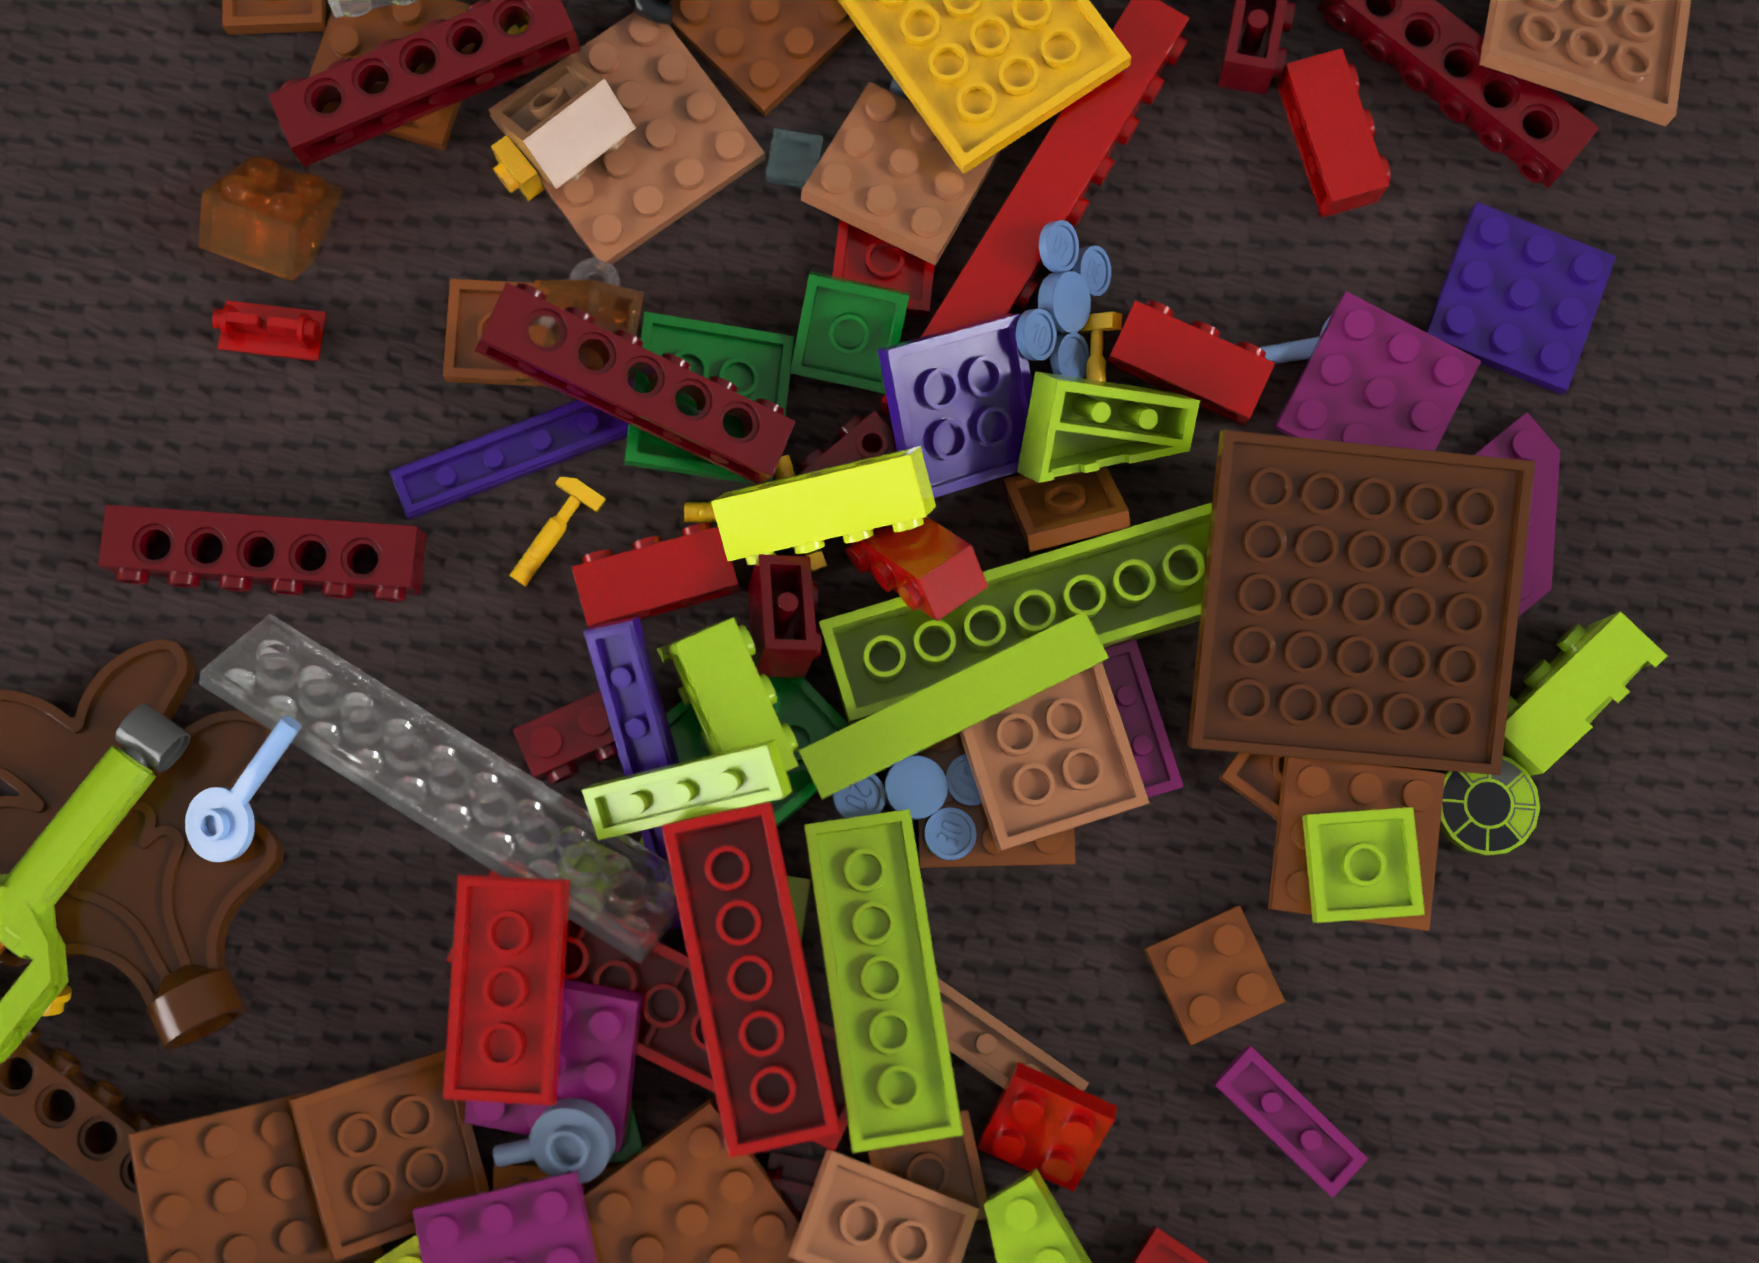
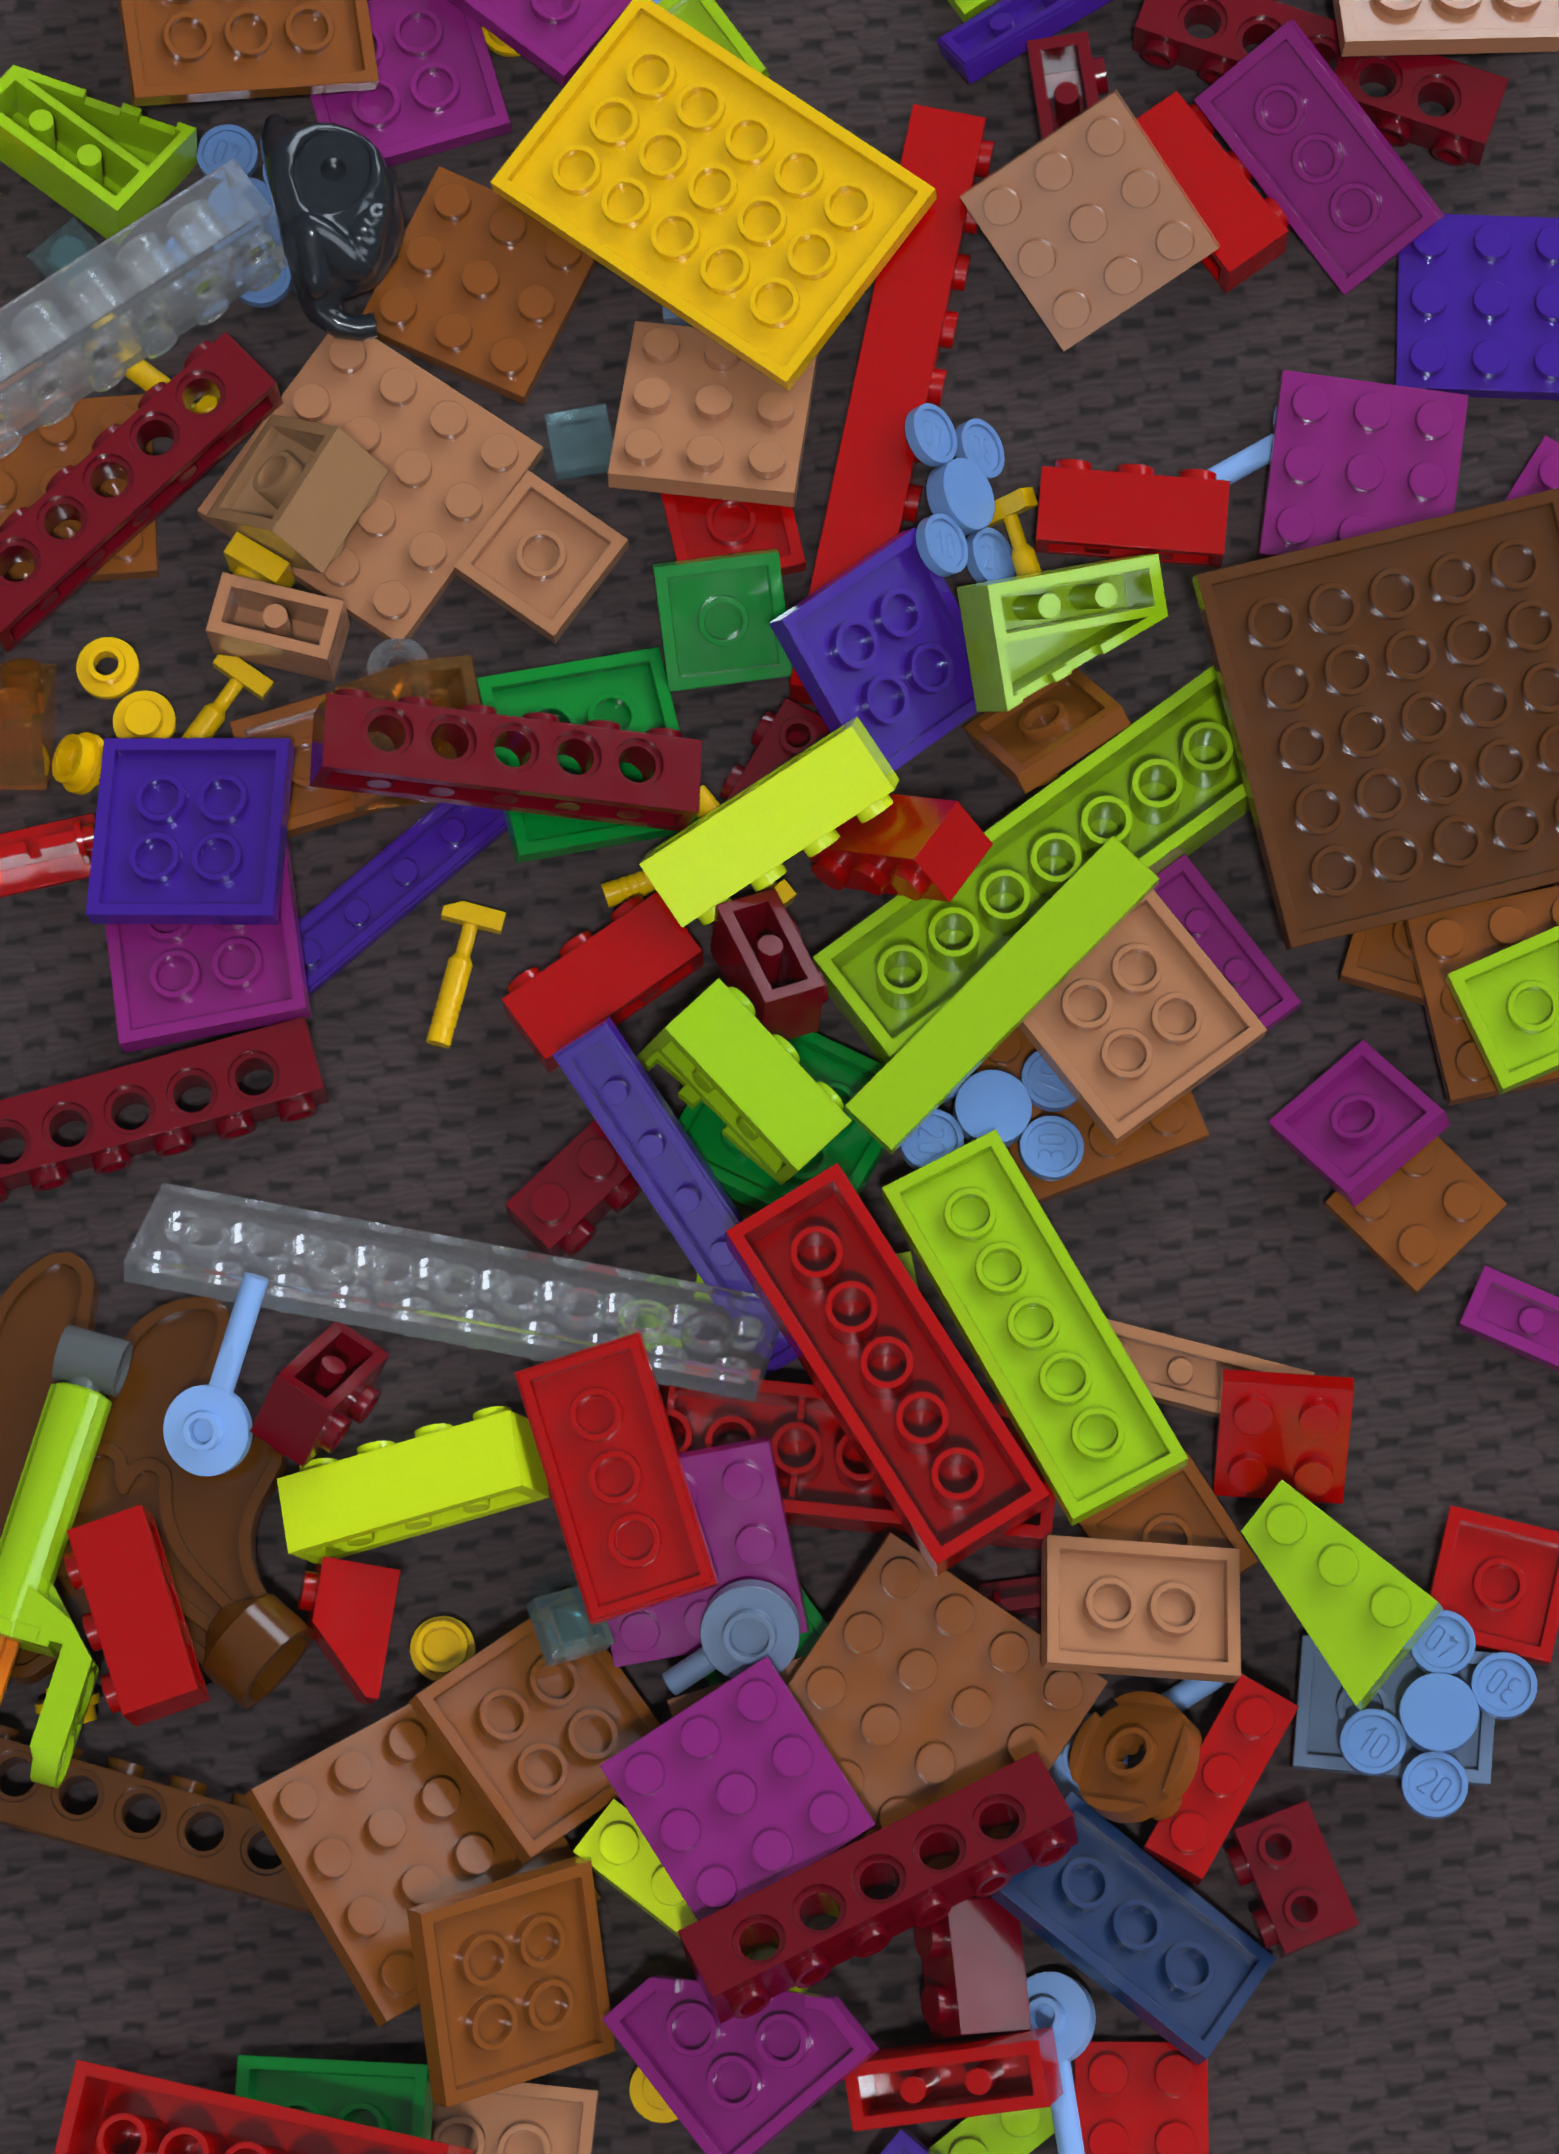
camera: 10 degrees left, 5 degrees down
(104, 954) = (135, 1616): none -> red brick
(279, 1007) = (351, 1619): none -> red slope
(315, 826) = (321, 1394): none -> dark red brick
(329, 270) = (78, 762): none -> yellow plate
(344, 1053) = (441, 1646): none -> yellow plate
(355, 925) = (411, 1485): none -> neon yellow brick
(366, 442) = (207, 978): none -> magenta plate
(377, 219) = (114, 684): none -> yellow plate
(384, 352) = (190, 831): none -> dark purple plate
(389, 255) = (144, 716): none -> yellow plate
(427, 1082) = (565, 1627): none -> clear light blue plate
(441, 270) = (241, 676): none -> yellow piece
(511, 218) = (278, 626): none -> nougat brick
(687, 790) = (735, 1189): lime plate -> none
(732, 235) = (541, 556): none -> nougat plate
(1194, 899) = (1359, 1123): none -> magenta plate
(1241, 123) = (1090, 220): none -> nougat plate
(1433, 136) = (1319, 157): none -> magenta plate

